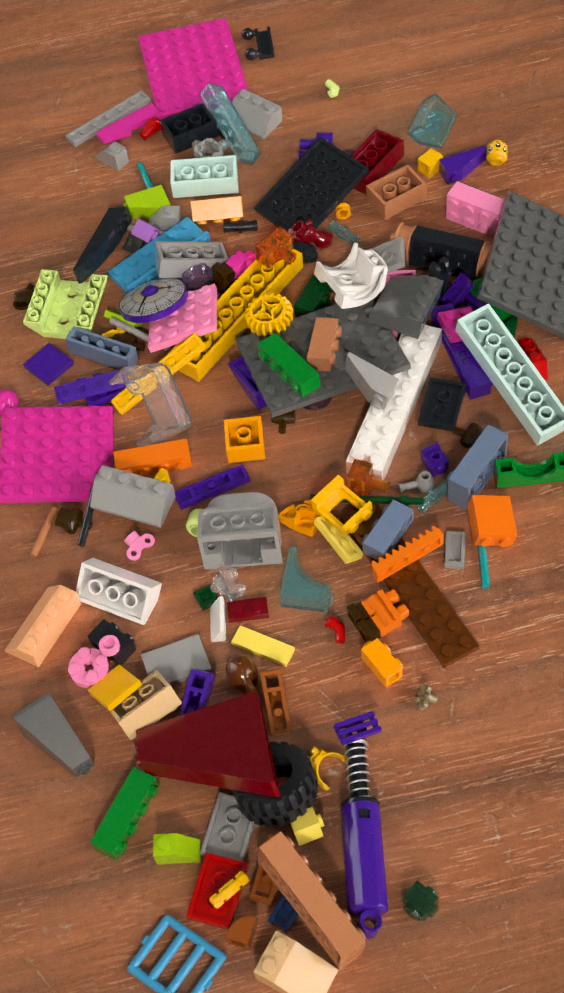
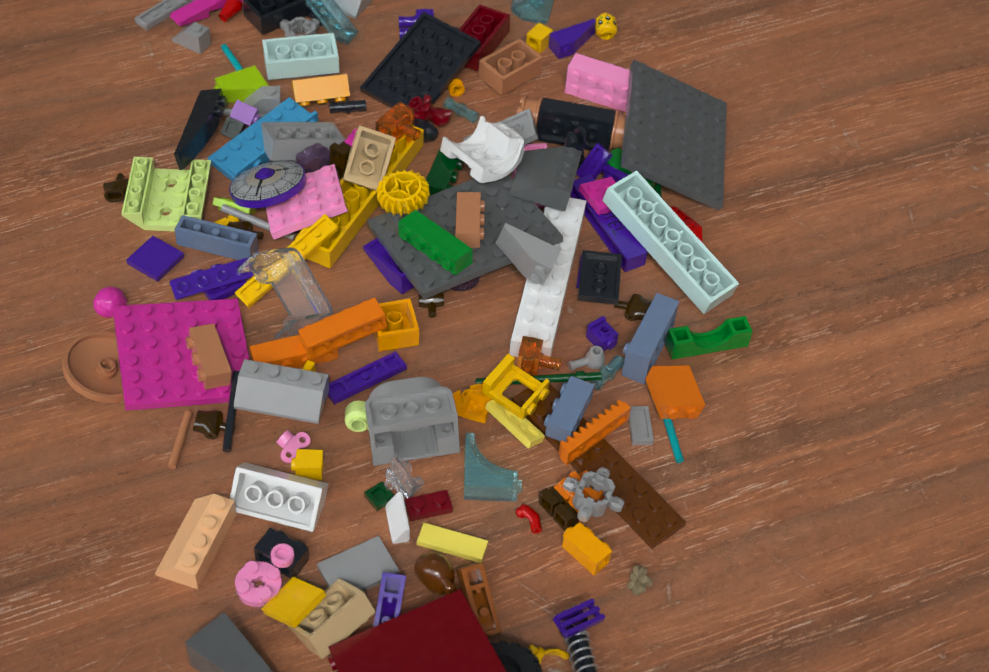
camera: 20 degrees left, 5 degrees down
(75, 459) = (208, 356): none -> nougat brick
(148, 563) = (308, 463): none -> yellow brick
(194, 441) = (342, 328): none -> orange brick
(243, 280) = (368, 157): none -> tan slope
(384, 624) = (598, 481): none -> light grey piece

